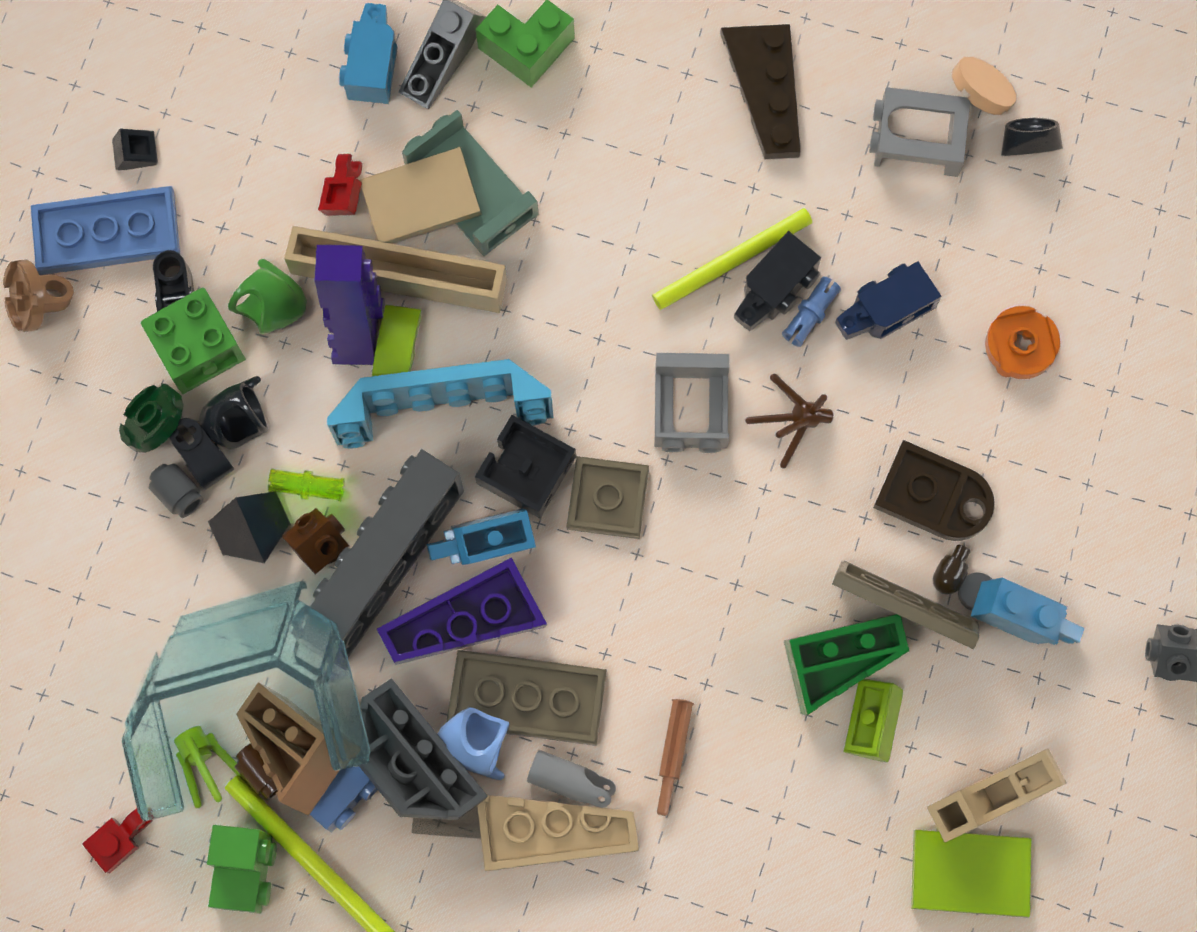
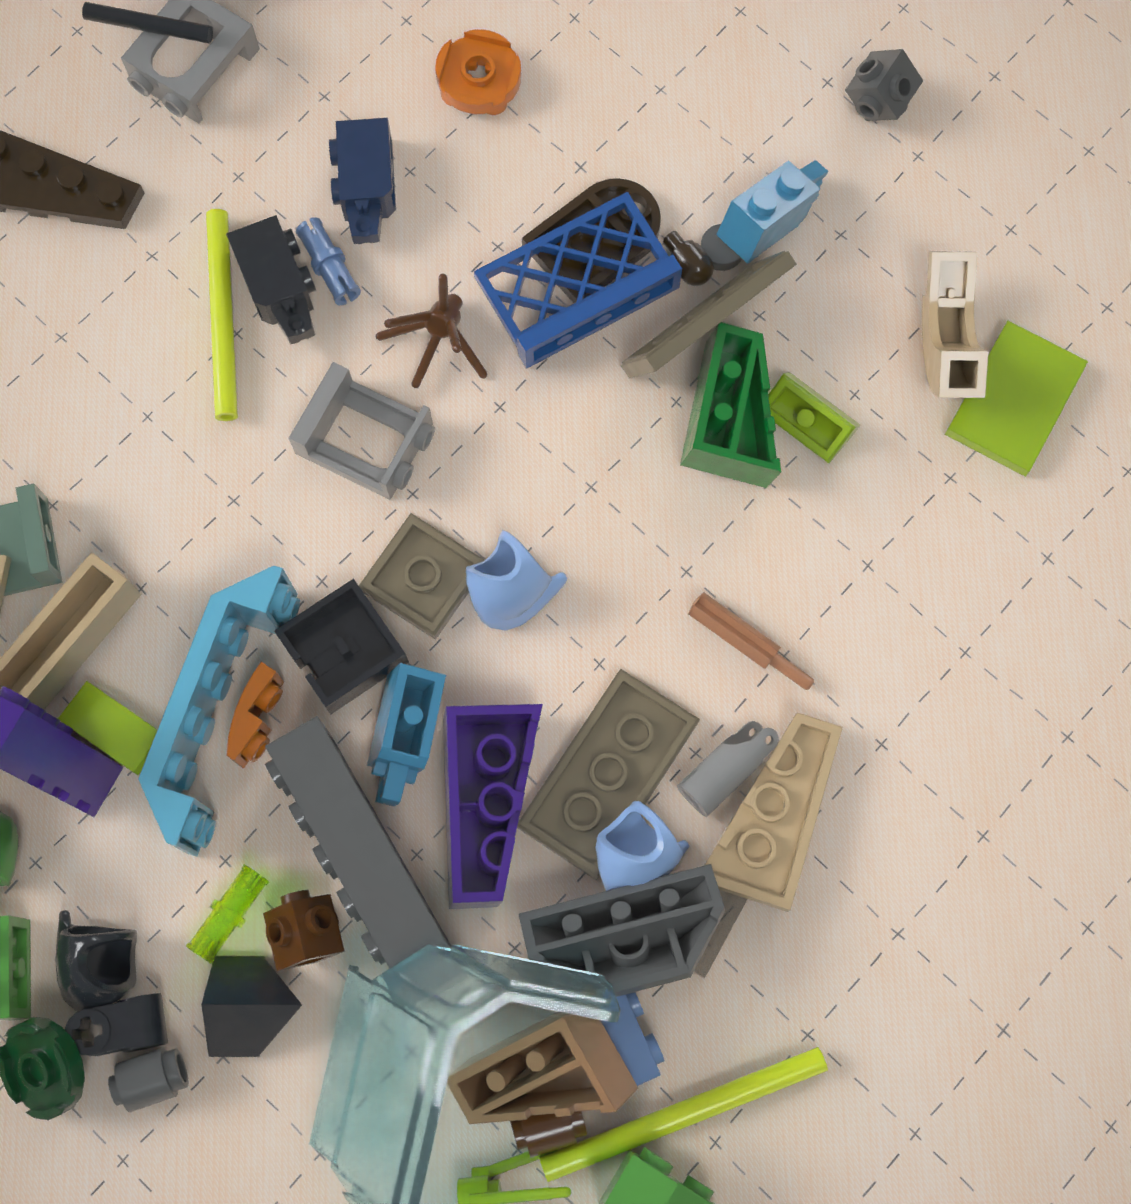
camera: 65 degrees left, 0 degrees up
(436, 433) = (248, 732): none -> orange slope
(627, 561) = (510, 585): none -> light blue piece
(872, 521) = (604, 304): none -> blue fence
(922, 91) = (147, 22): none -> black bar

